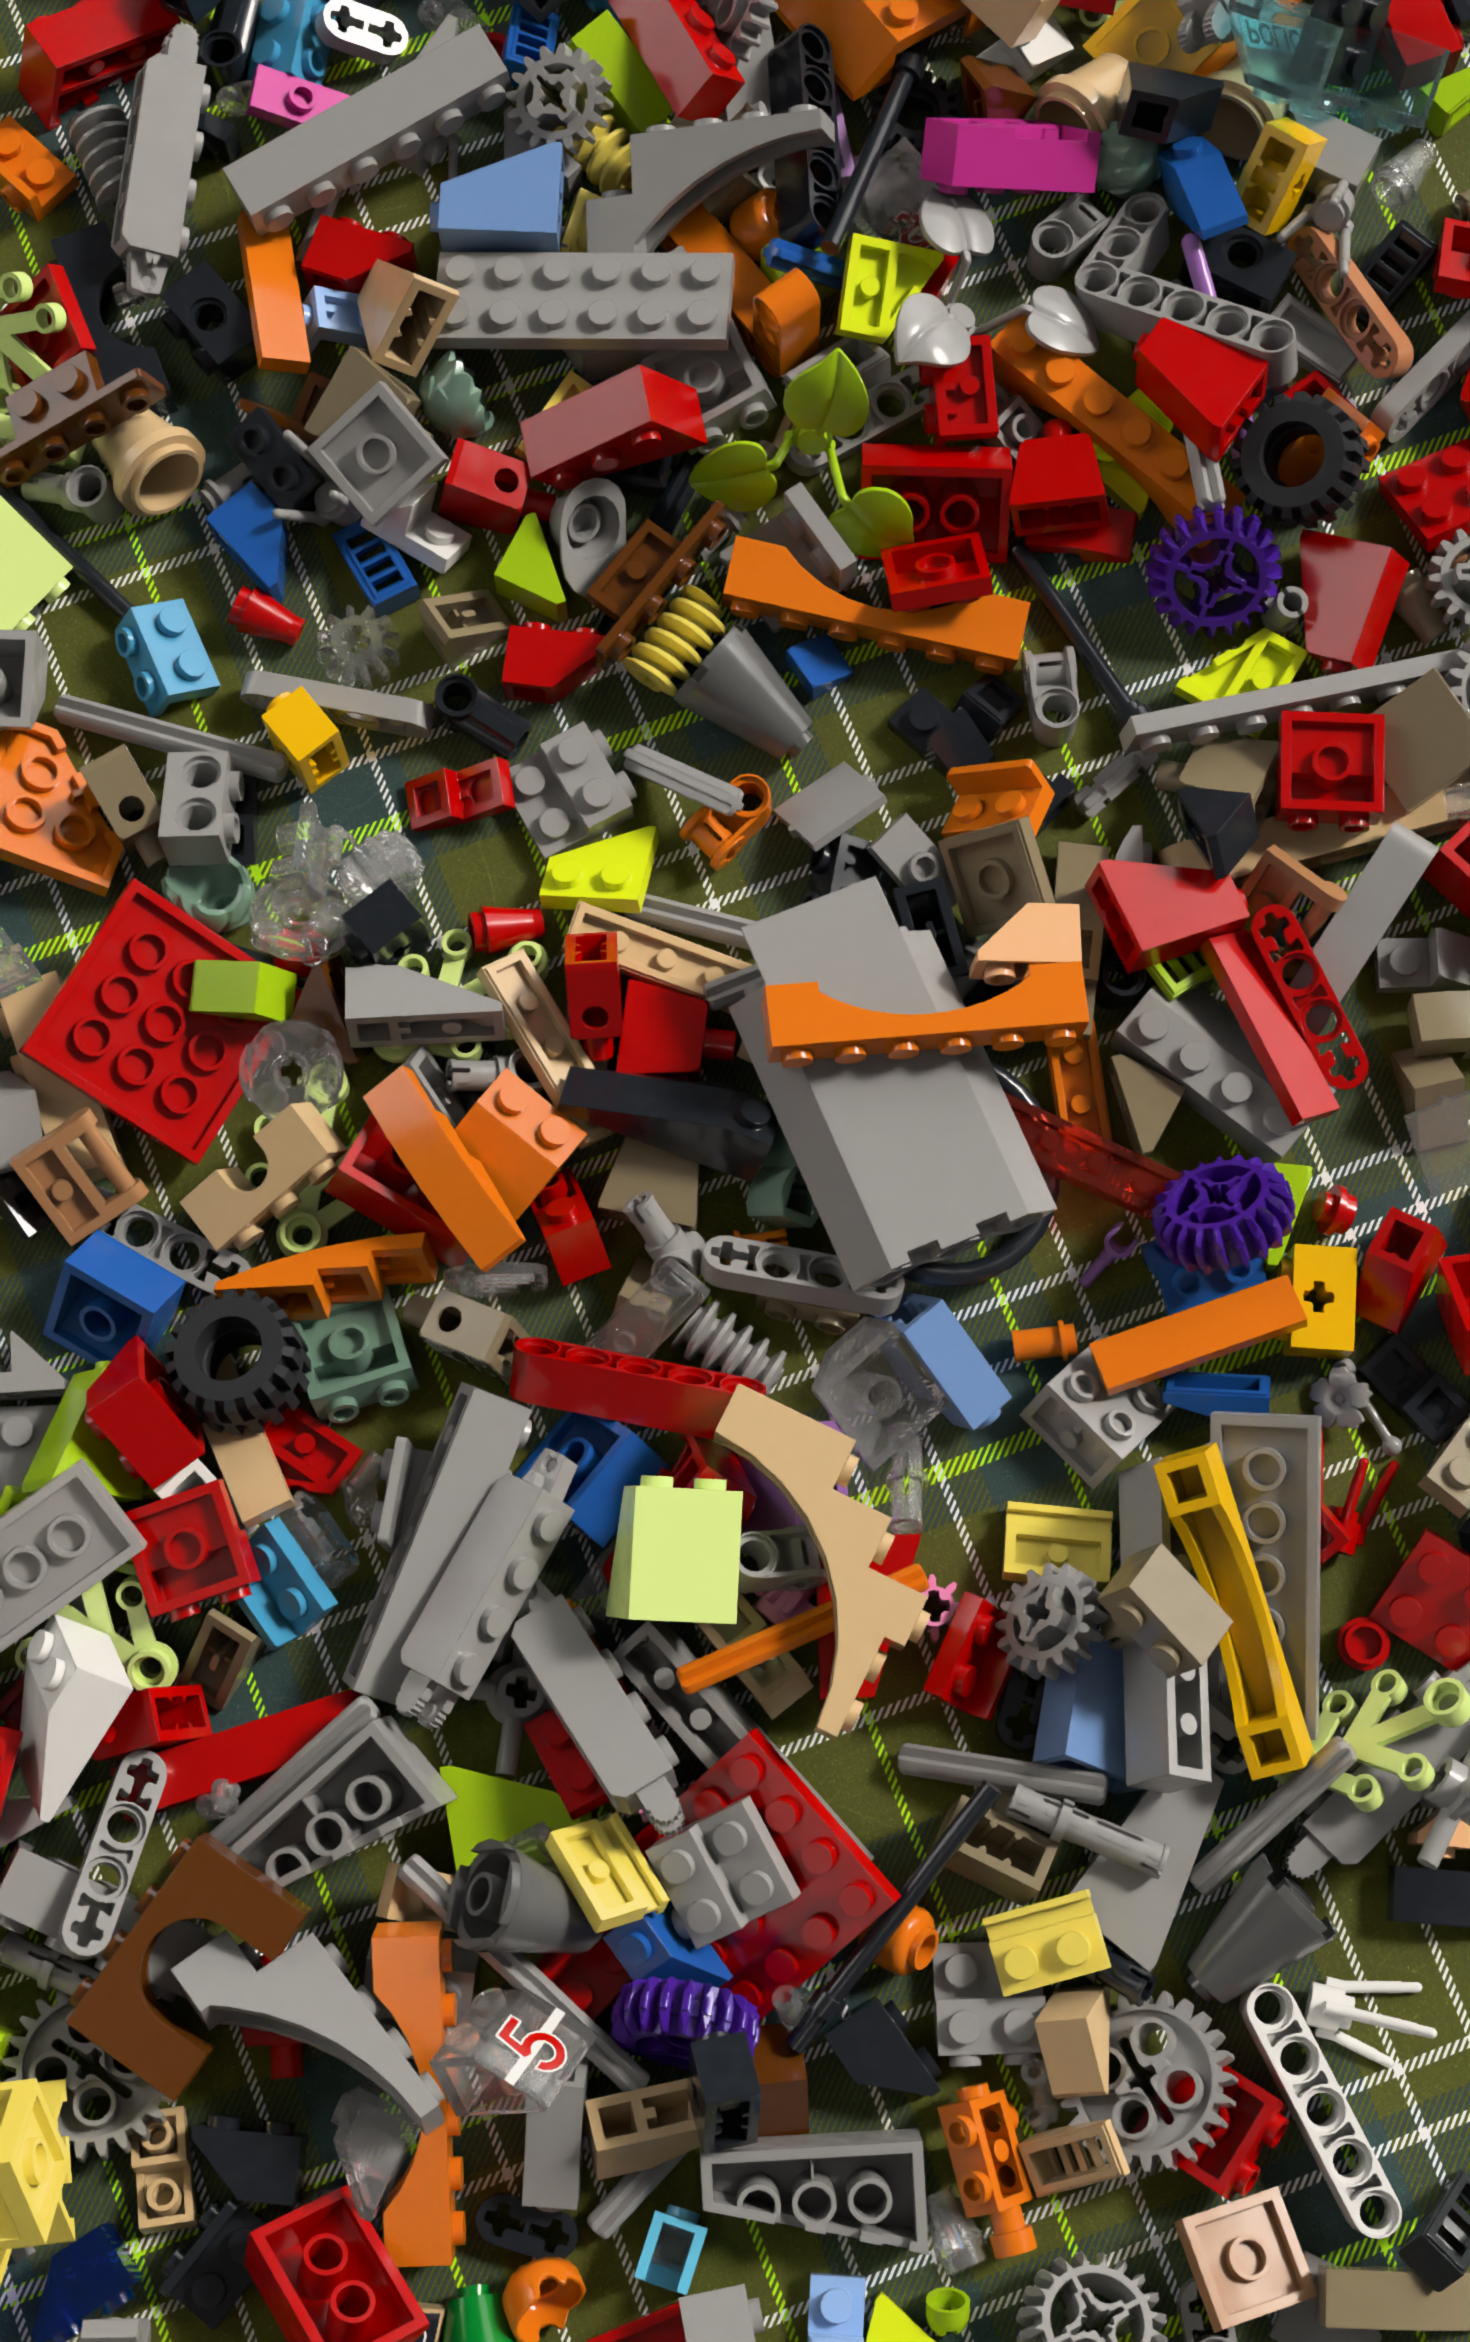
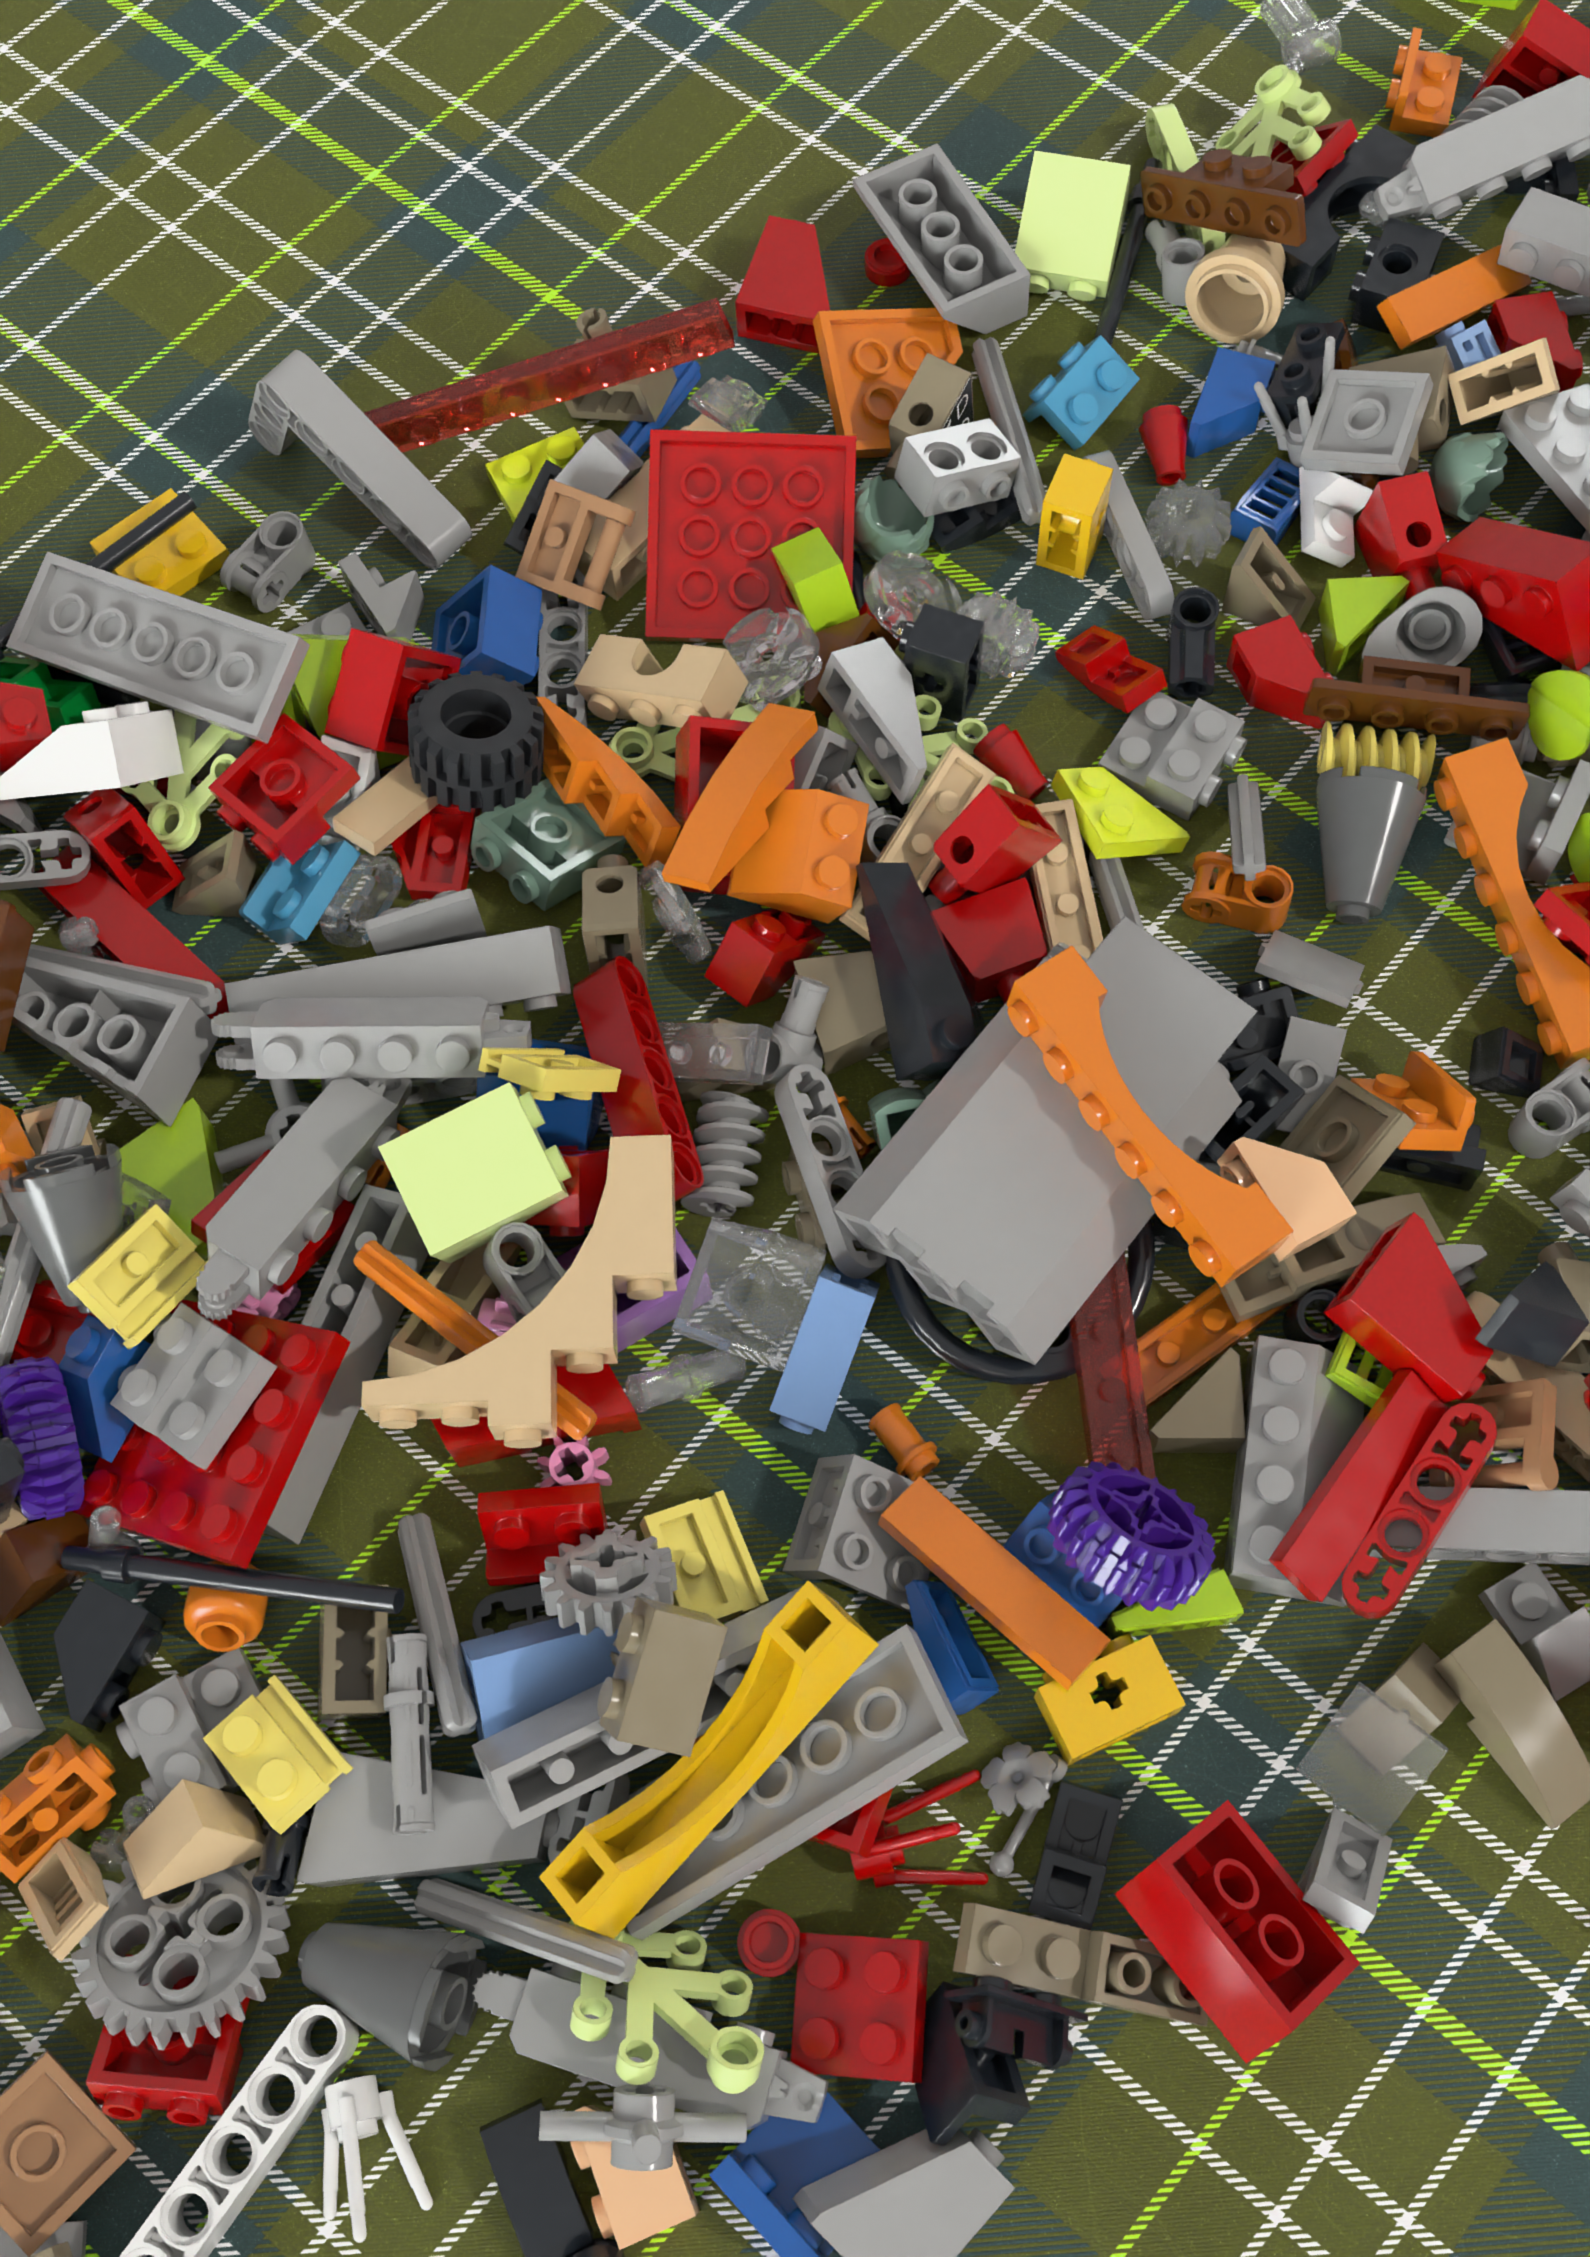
camera: 65 degrees right, 10 degrees down
(309, 854) = (972, 570): clear hips -> none
(613, 1453) = (550, 1072): none -> light yellow plate
(818, 665) = (1441, 894): blue slope -> none
(938, 734) = (1452, 1028): black slope -> none
(1107, 1255) = (1037, 1460): medium lavender hand -> none
(1111, 782) = (1517, 1214): light grey axle -> none
(1334, 1210) = (1215, 1666): red plate -> none
(1397, 1269) = (1191, 1763): red slope -> none

